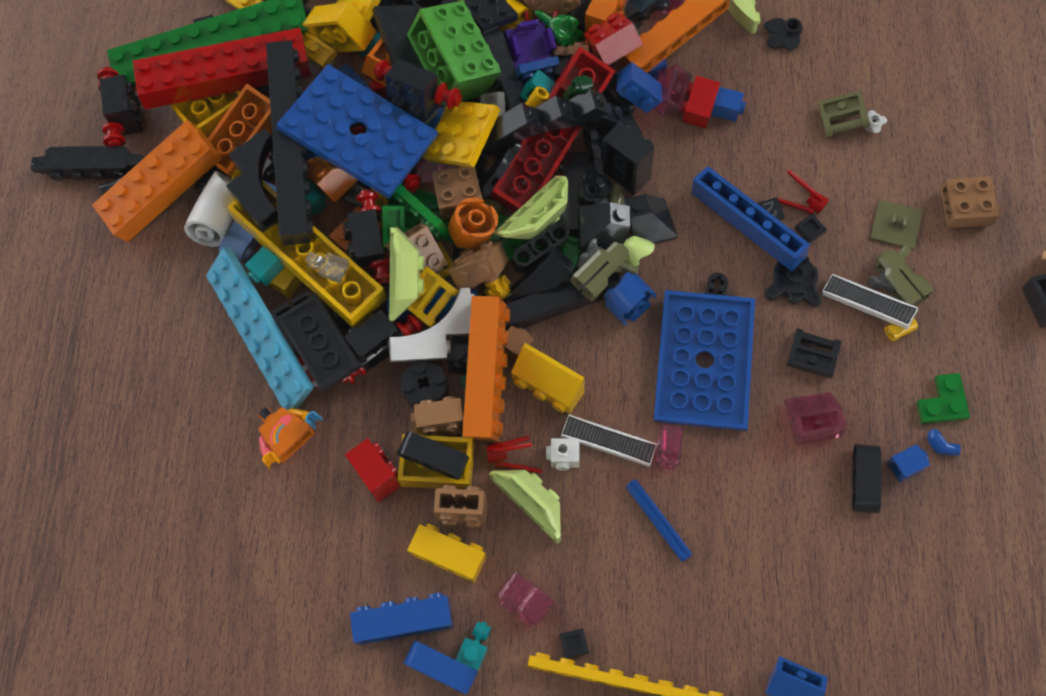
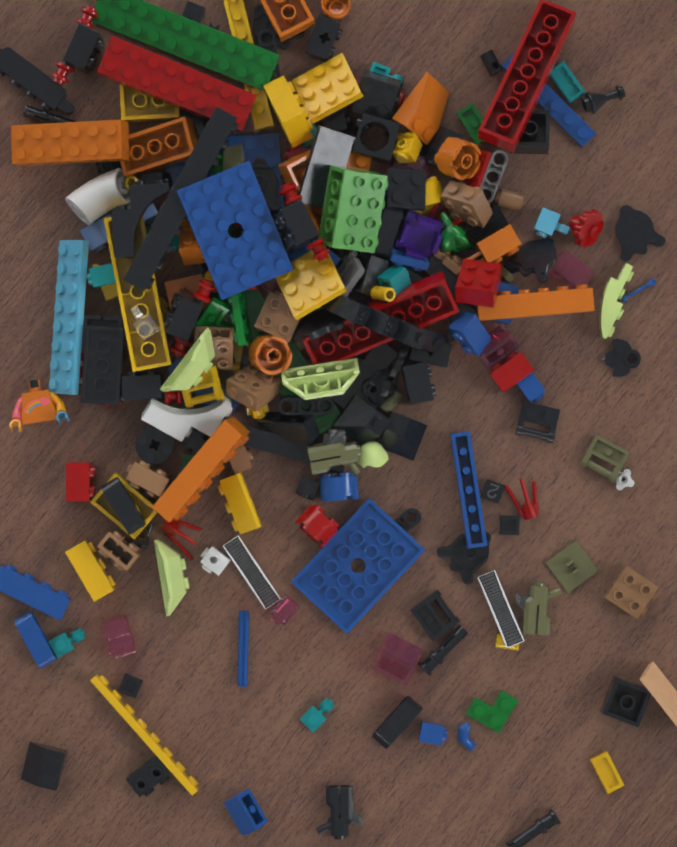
camera: 25 degrees right, 20 degrees up
(481, 483) = (144, 541): none -> black hand
(579, 86) = (413, 317): dark green plate -> none
(600, 323) = (307, 488): none -> black brick
(637, 347) = (317, 525): none -> red brick
(756, 123) = (539, 415): none -> black plate
(782, 536) = (314, 718): none -> teal plate
(849, 387) = (436, 657): none -> black pin
(891, 611) = (342, 811): none -> black piece

